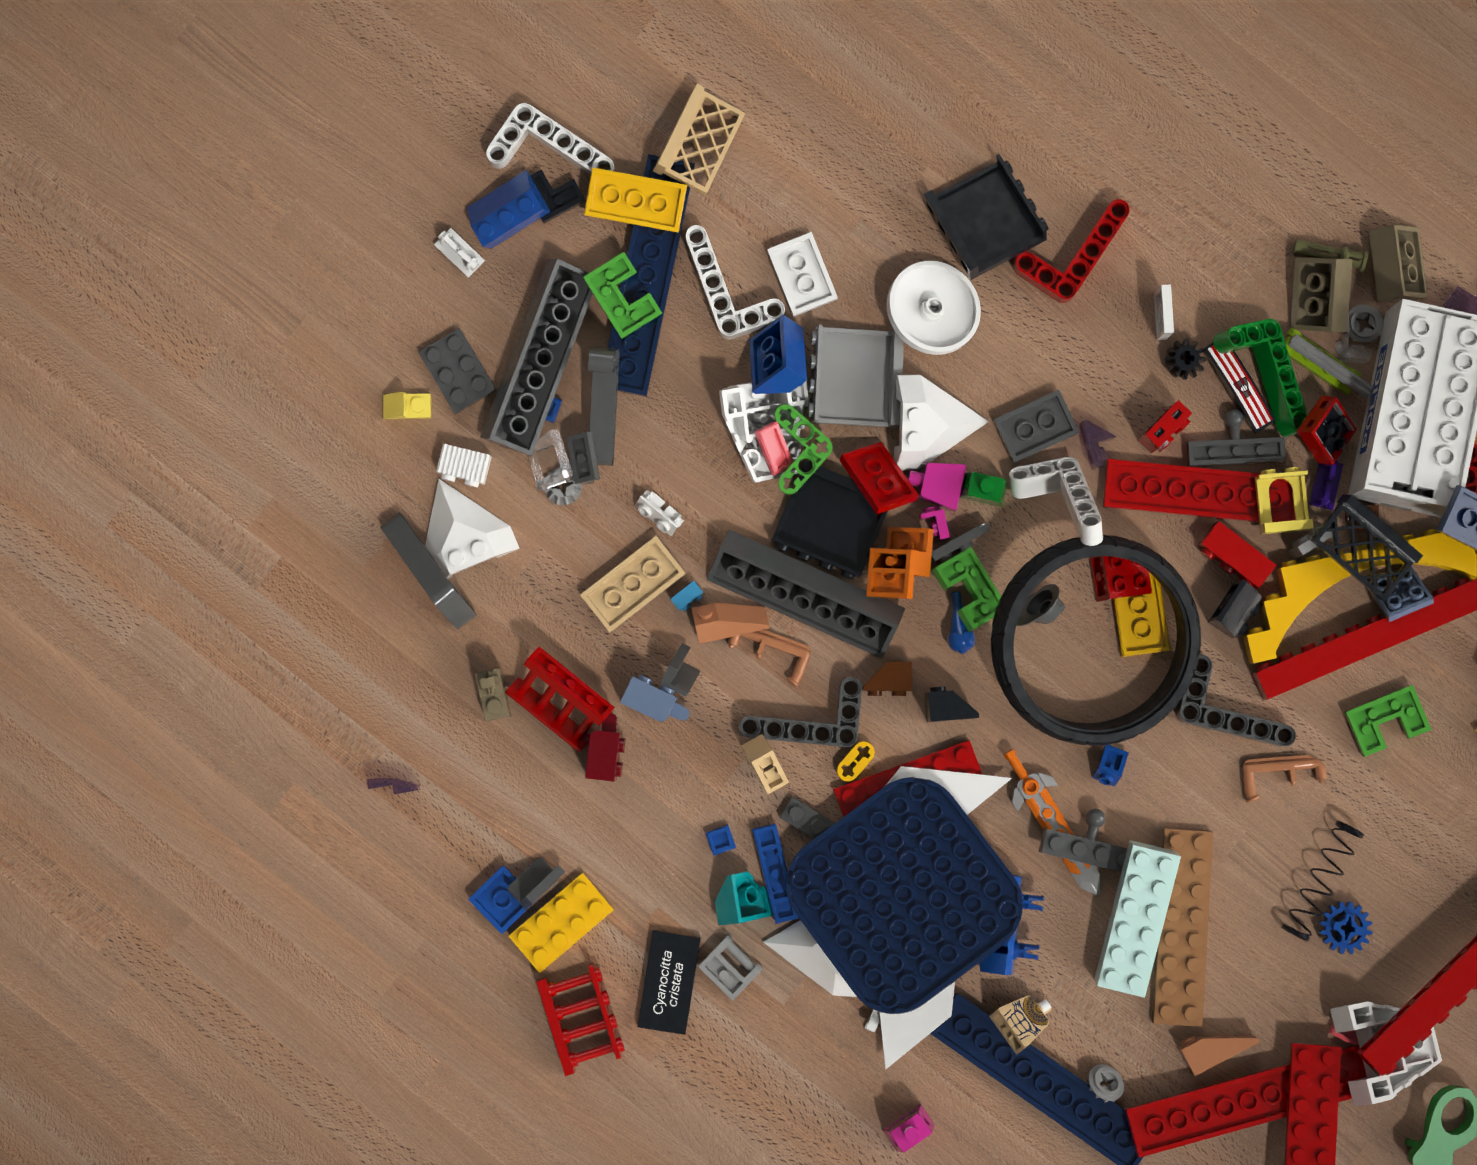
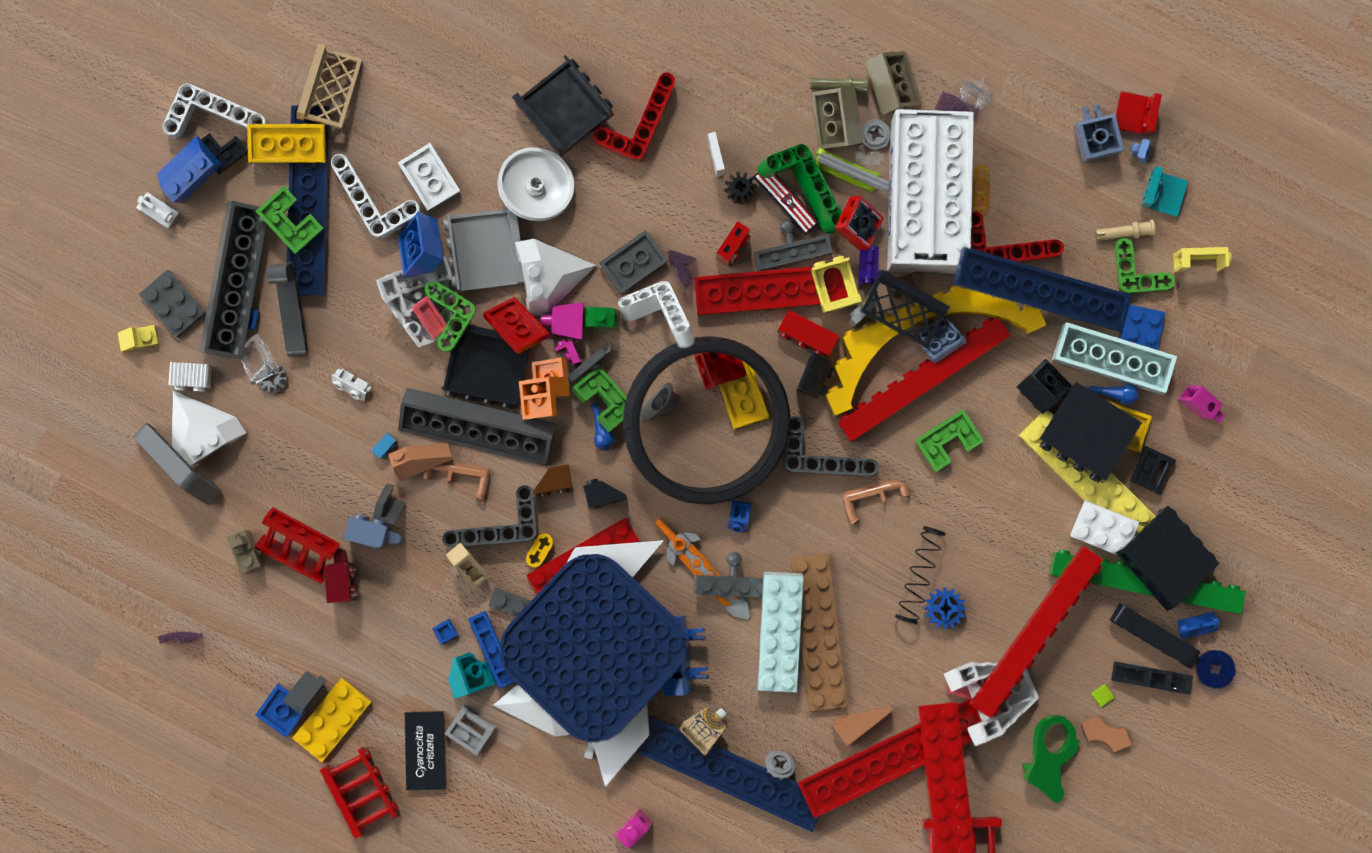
camera: 10 degrees left, 0 degrees up
(583, 458) = (282, 353): dark grey panel -> none
(633, 584) = (340, 444): tan plate -> none

